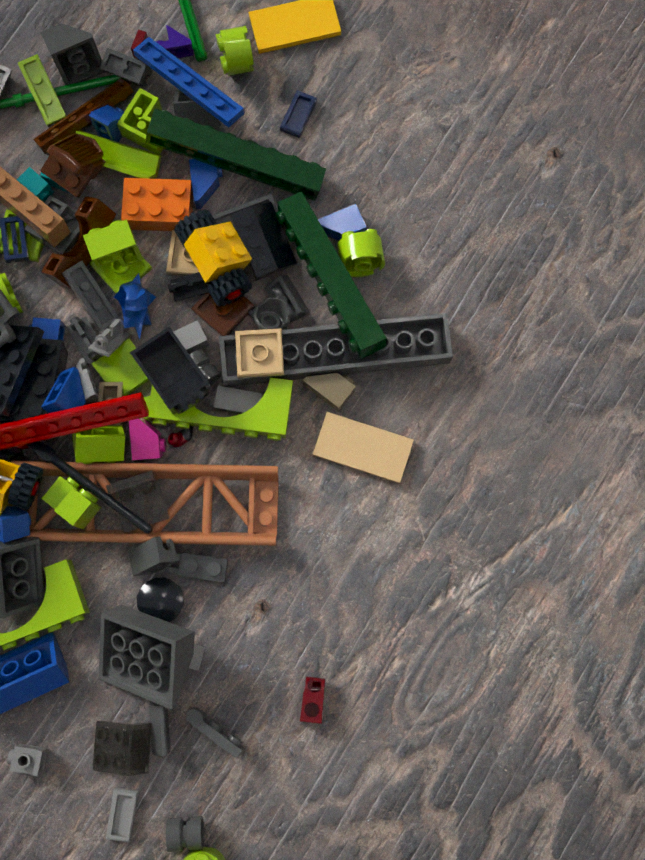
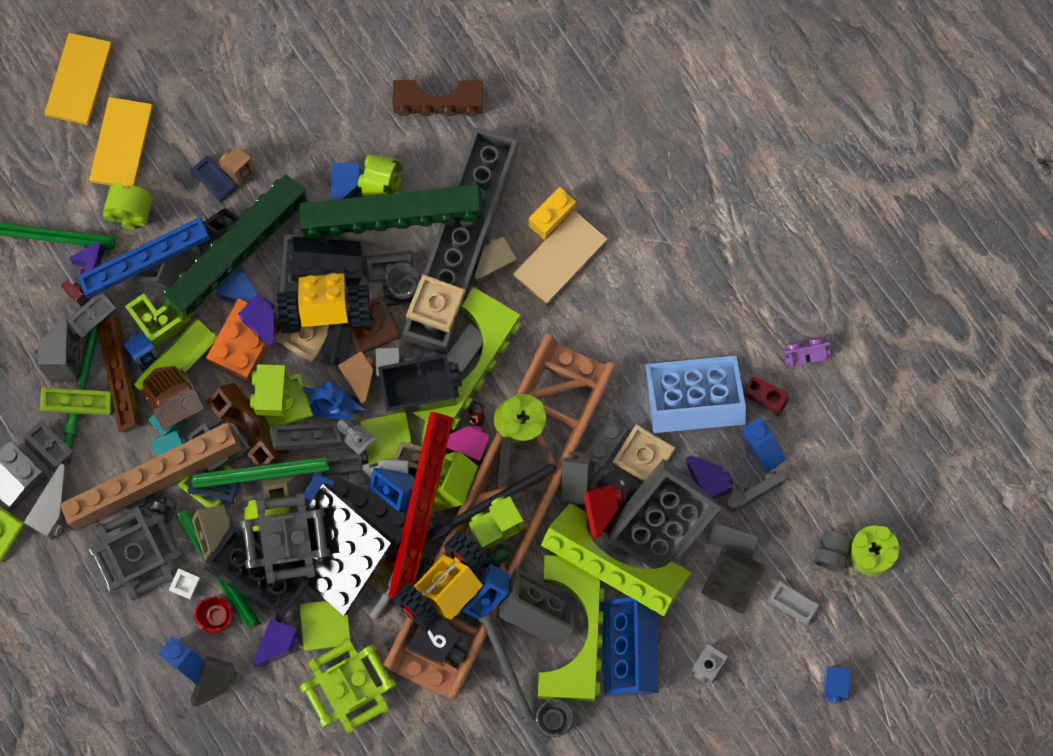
camera: 60 degrees left, 5 degrees down
(37, 272) = (260, 472): none -> green axle
(40, 297) = (286, 486): none -> dark tan slope
(42, 515) = (498, 556): none -> dark green arm
(67, 675) = (651, 587): none -> lime arch
(131, 591) = (601, 506): none -> red slope
(168, 313) = (359, 376): none -> medium nougat slope
(172, 206) = (260, 319): none -> dark purple slope
(173, 490) = (529, 409): none -> lime brick
(206, 608) = (642, 453): none -> tan tile
(207, 682) = (709, 477): none -> dark purple slope
(249, 130) = (216, 226): none -> black slope
(263, 718) = (762, 444): none -> blue slope
(285, 632) = (695, 394): none -> light blue slope
(315, 126) = (237, 166): none -> medium nougat slope
(382, 728) = (815, 350): none -> medium lavender hinge
(400, 421) = (552, 213): none -> yellow brick
(474, 294) = (465, 99): none -> reddish brown arch

